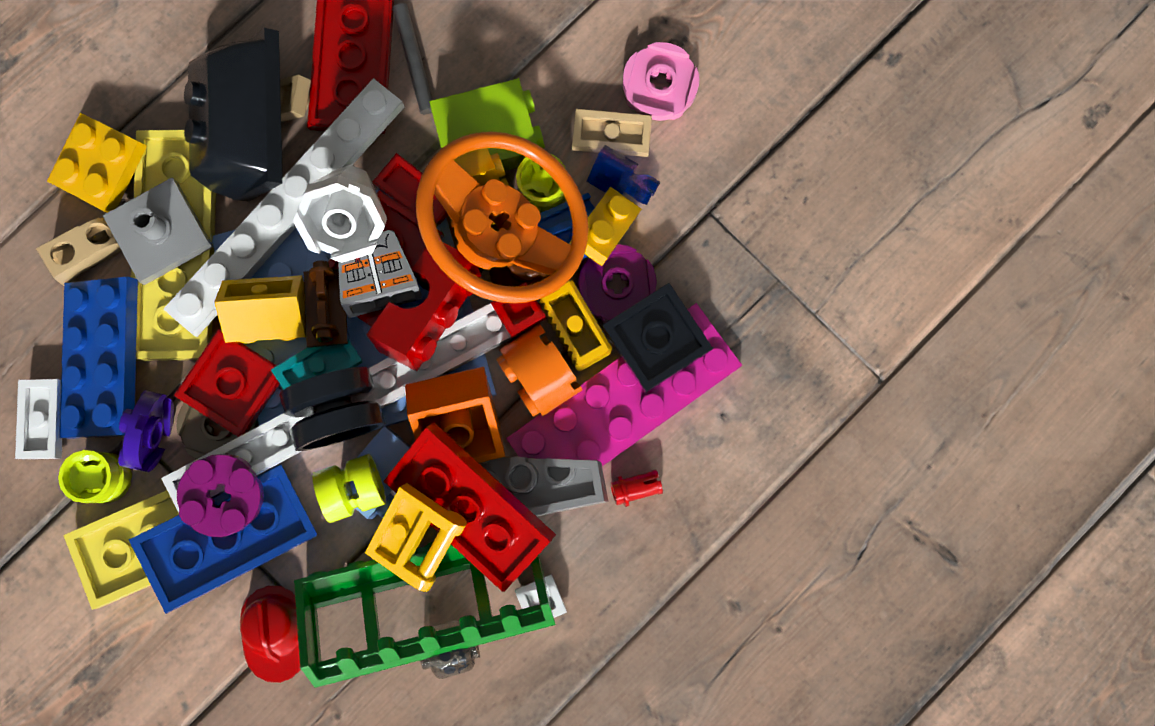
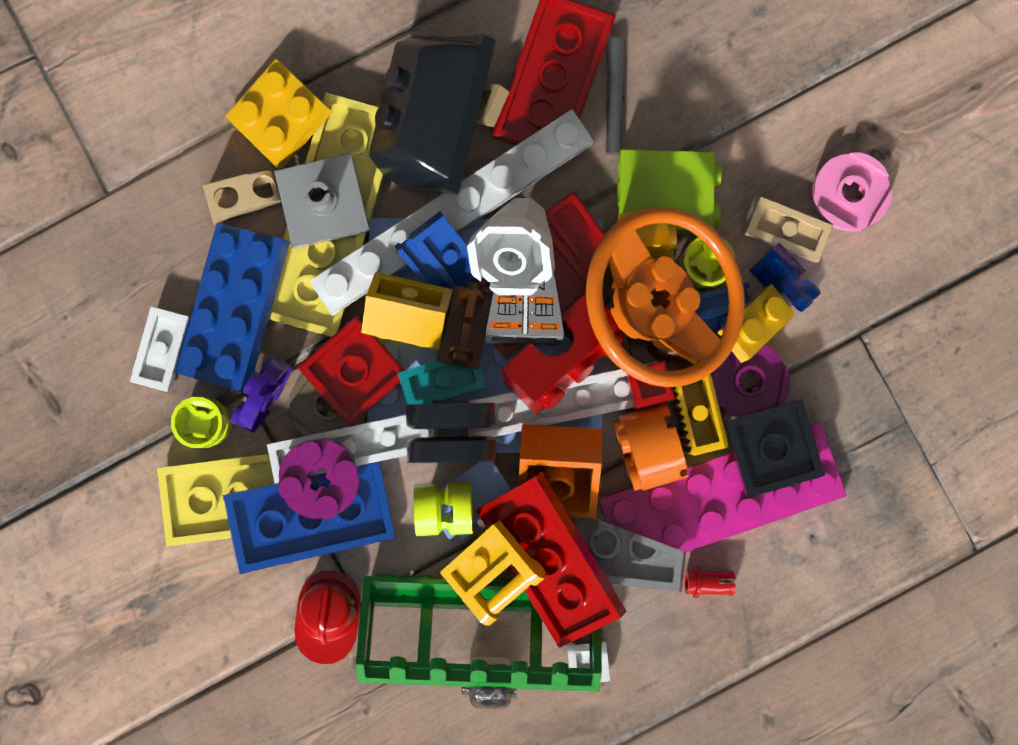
camera: 20 degrees right, 5 degrees up
(277, 246) = (437, 254): none -> blue plate

